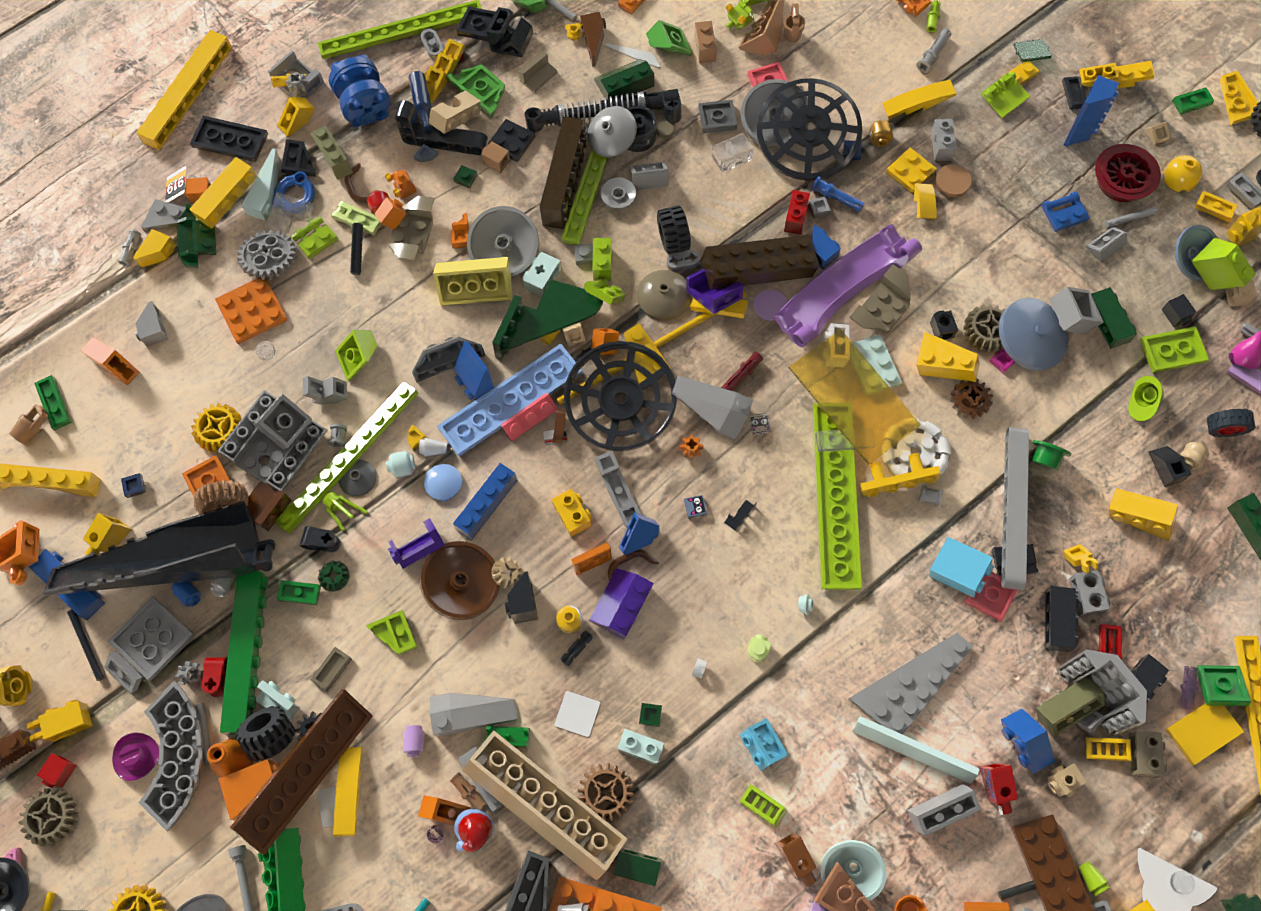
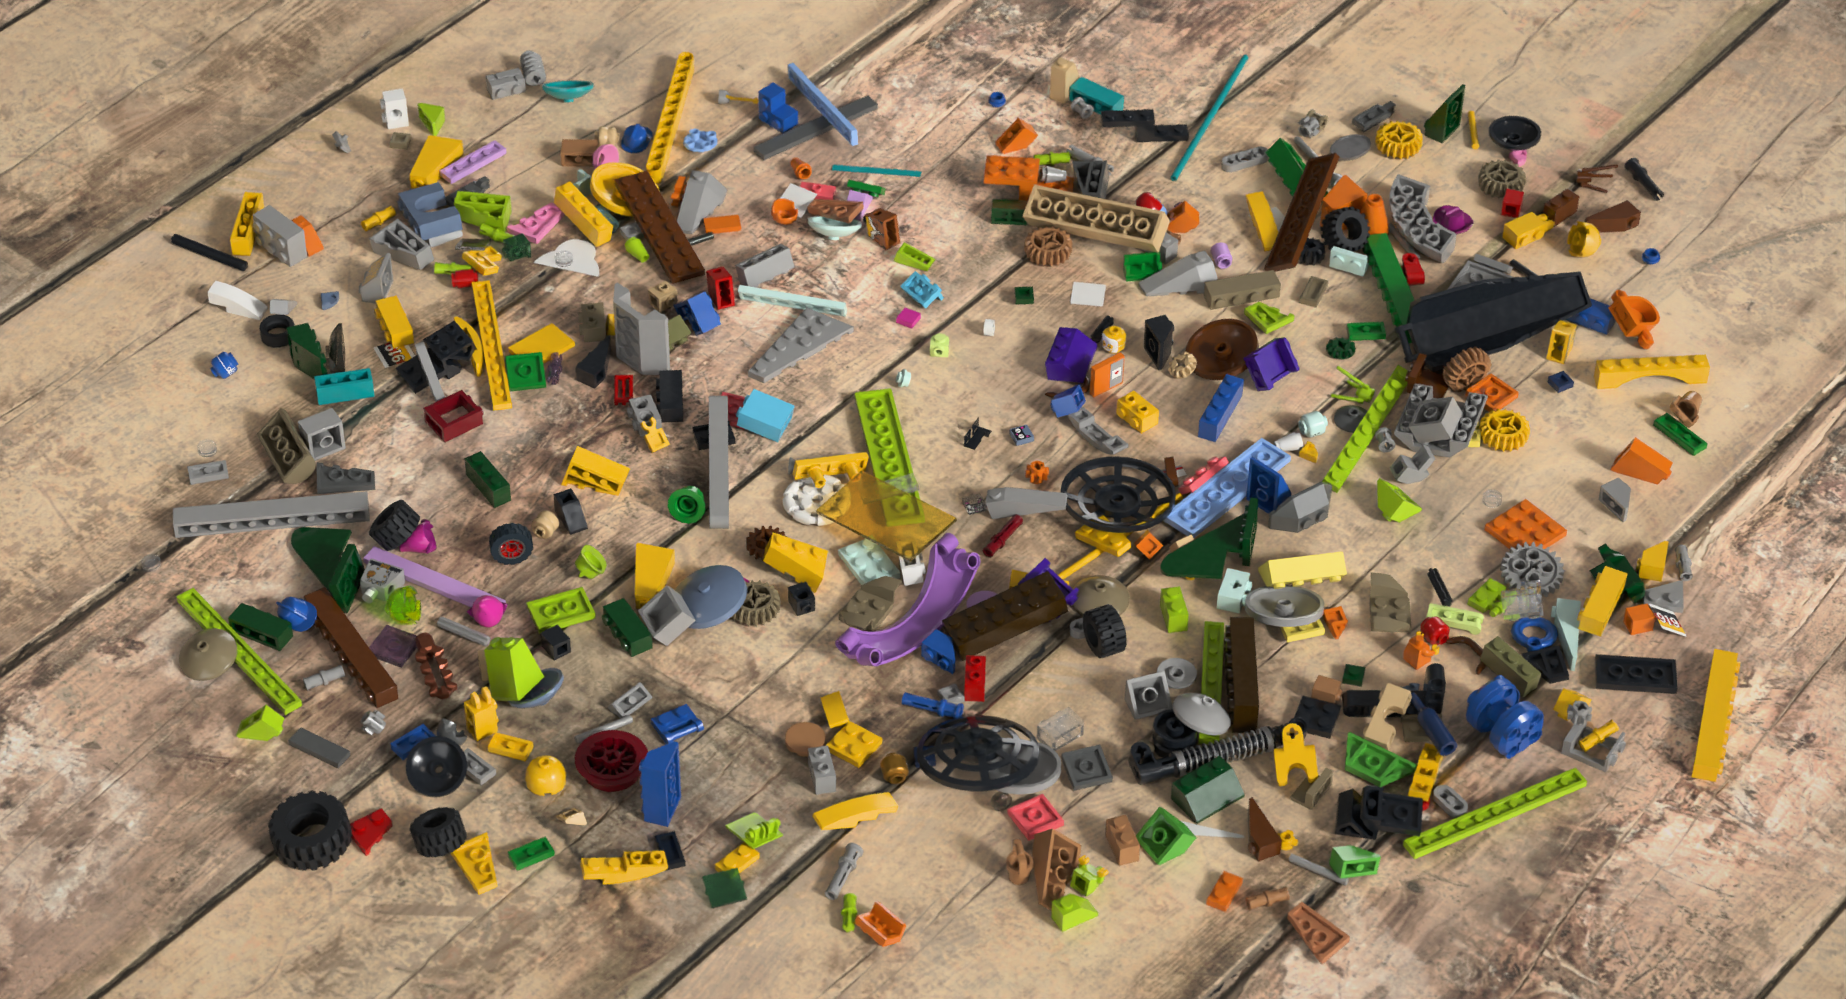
camera: 165 degrees right, 25 degrees down
(185, 671) = (1434, 268): light grey gear -> none
(317, 539) = (1366, 365): black piece -> none
(390, 213) = (1415, 613): orange brick -> none
(408, 678) = (1242, 289): none -> dark tan brick
(443, 482) = (1268, 422): light blue dish -> none
(544, 88) = (1294, 755): none -> yellow piece
(584, 254) = (1196, 620): light grey plate -> none
(604, 291) = (1155, 573): lime plate -> none
(640, 747) = (1026, 273): light aqua brick -> none
(785, 705) = (908, 318): none -> dark pink tile
(1087, 378) = (651, 571): none -> yellow slope

